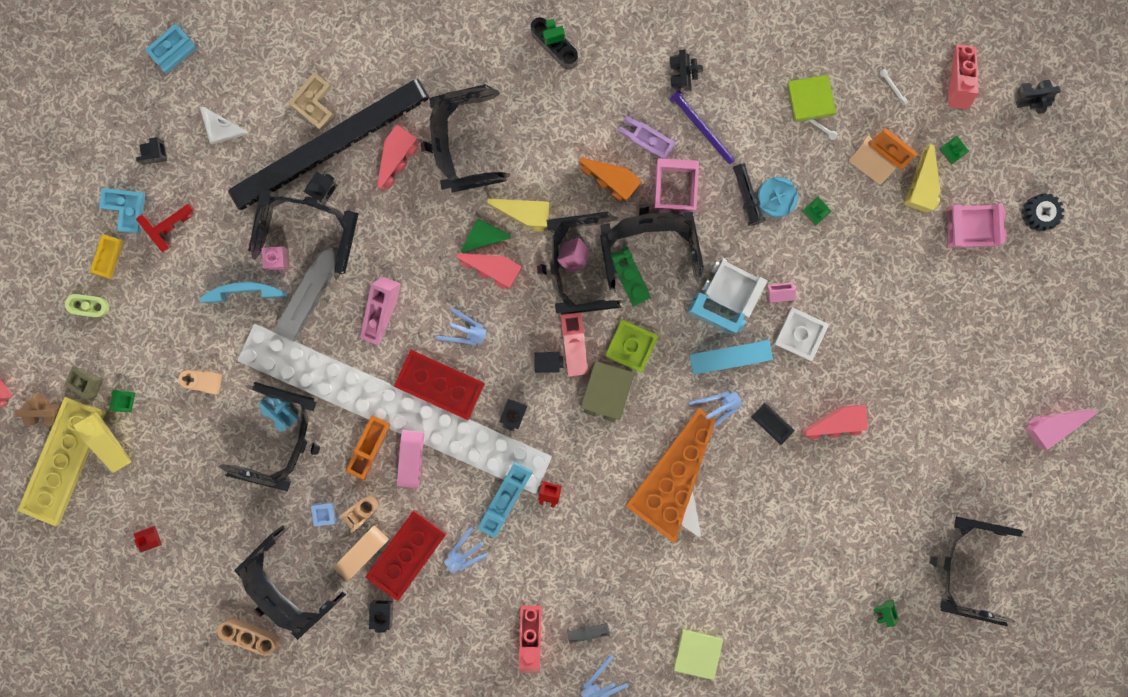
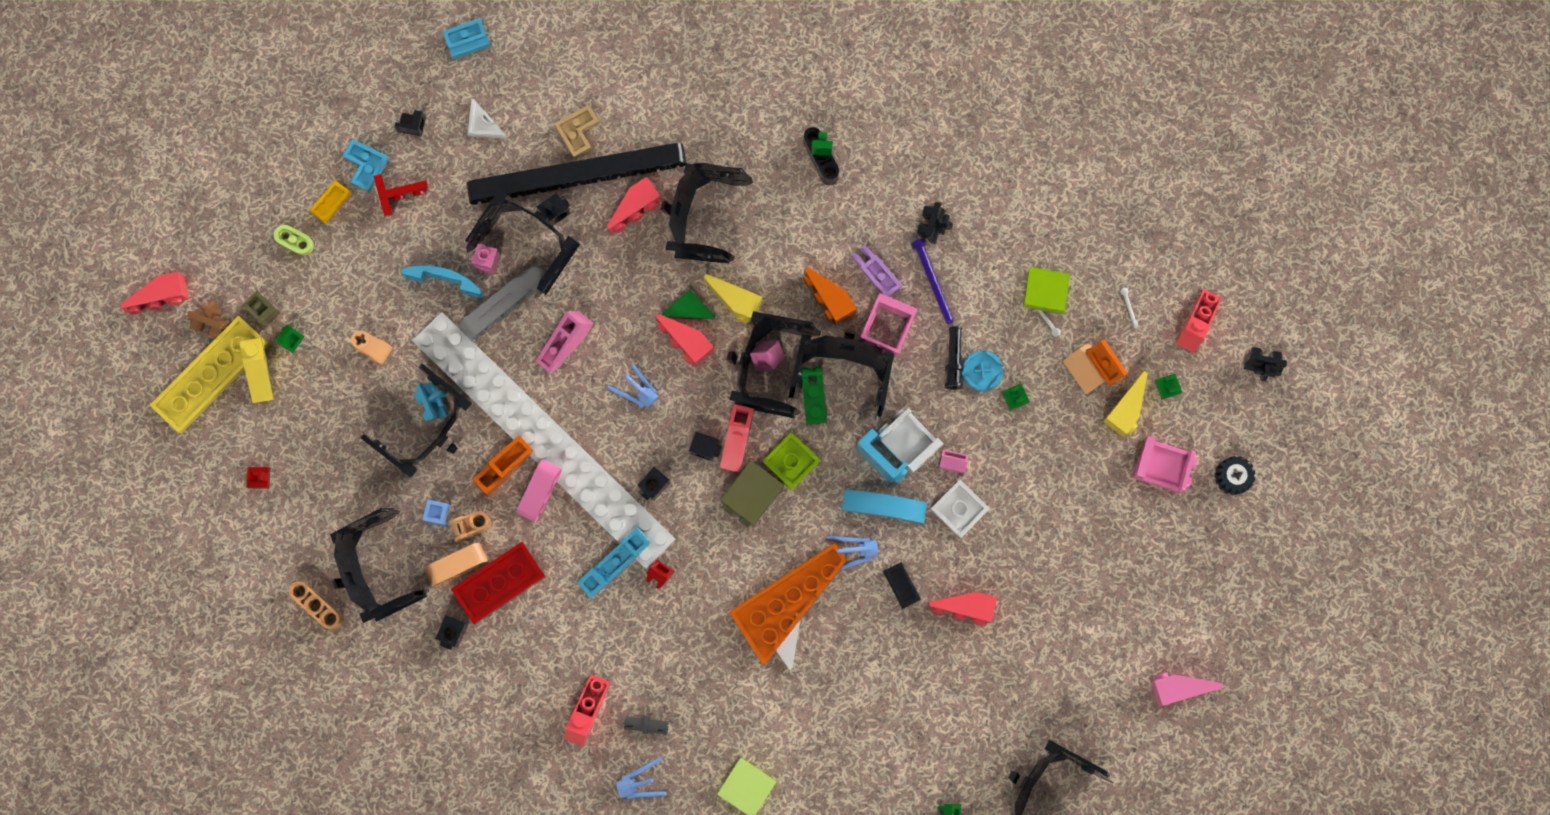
camera: 25 degrees right, 10 degrees down
(439, 384) = (594, 431): red plate -> none
(457, 561) = (545, 605): light blue plant -> none

